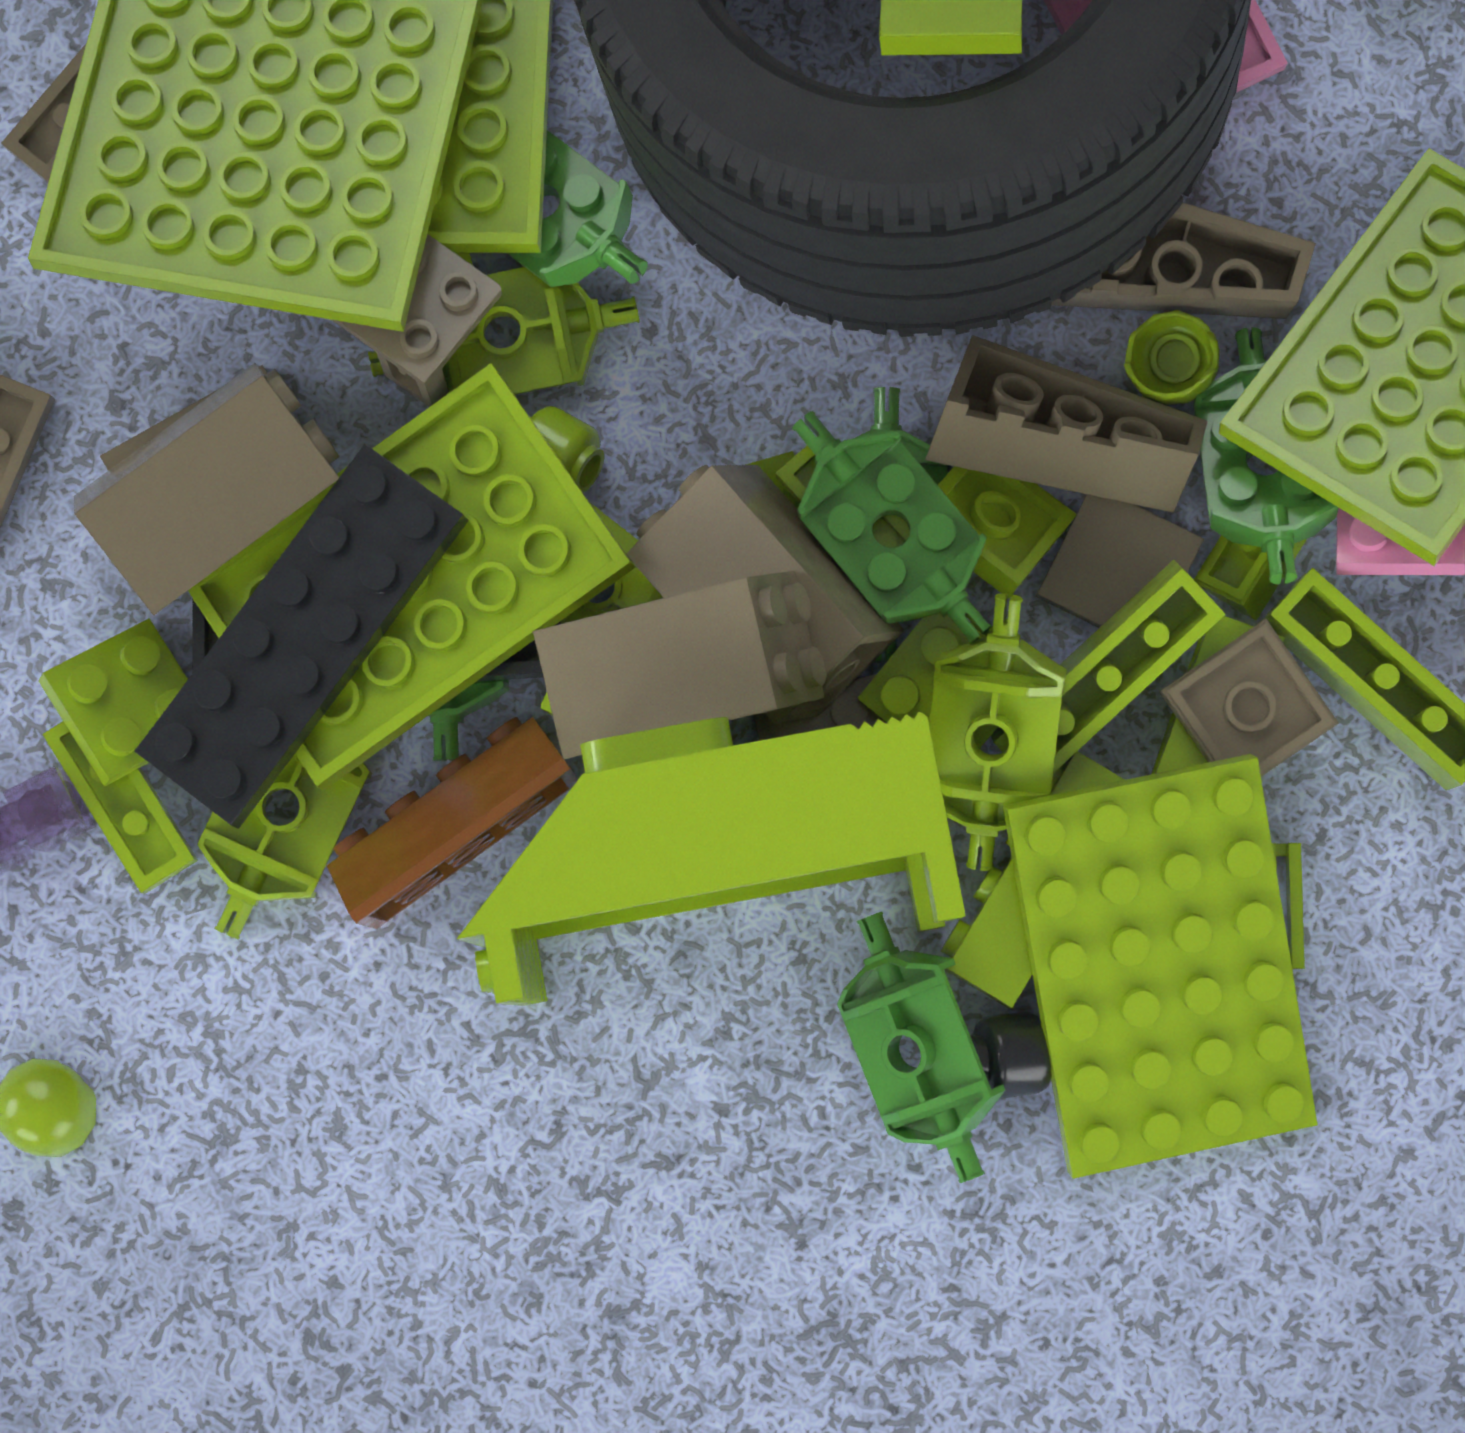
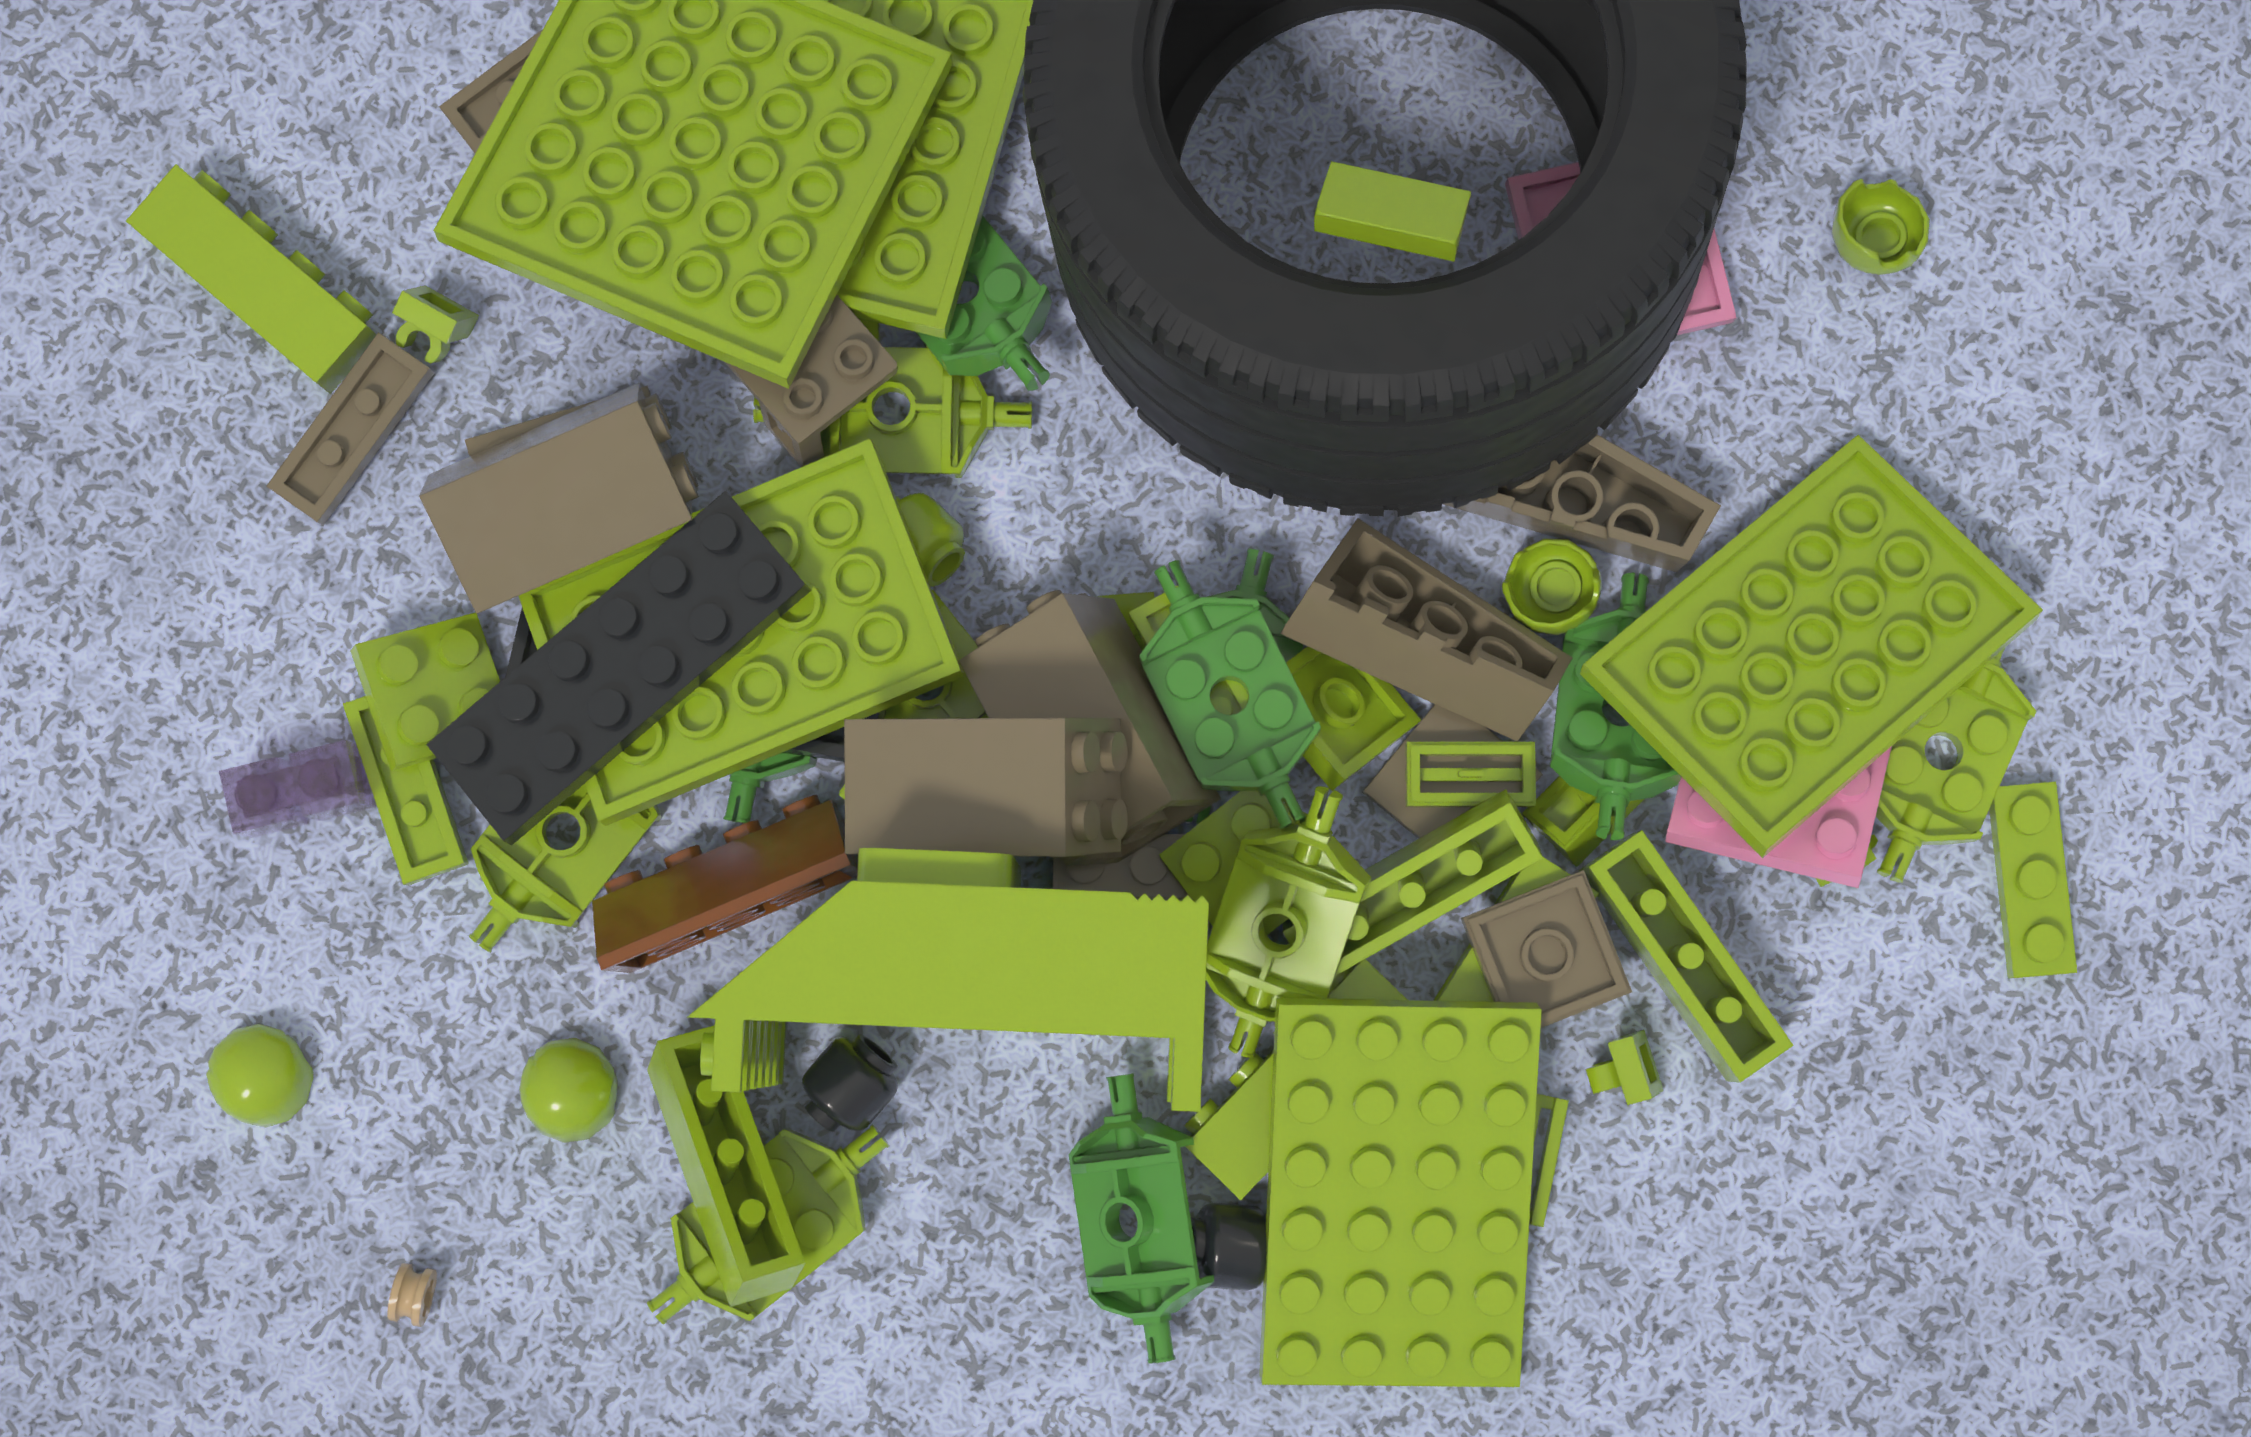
camera: 10 degrees right, 0 degrees up
(45, 344) = (434, 315): none -> lime tile
(240, 1282) = (412, 1294): none -> tan bush
(344, 1053) = (568, 1090): none -> lime hair
(514, 1089) = (725, 1174): none -> lime brick
(523, 1169) = (821, 1202): none -> lime plate
(612, 984) = (849, 1083): none -> black head
(1084, 566) = (1415, 774): none -> lime tile
(1352, 798) = (1630, 1068): none -> lime tile

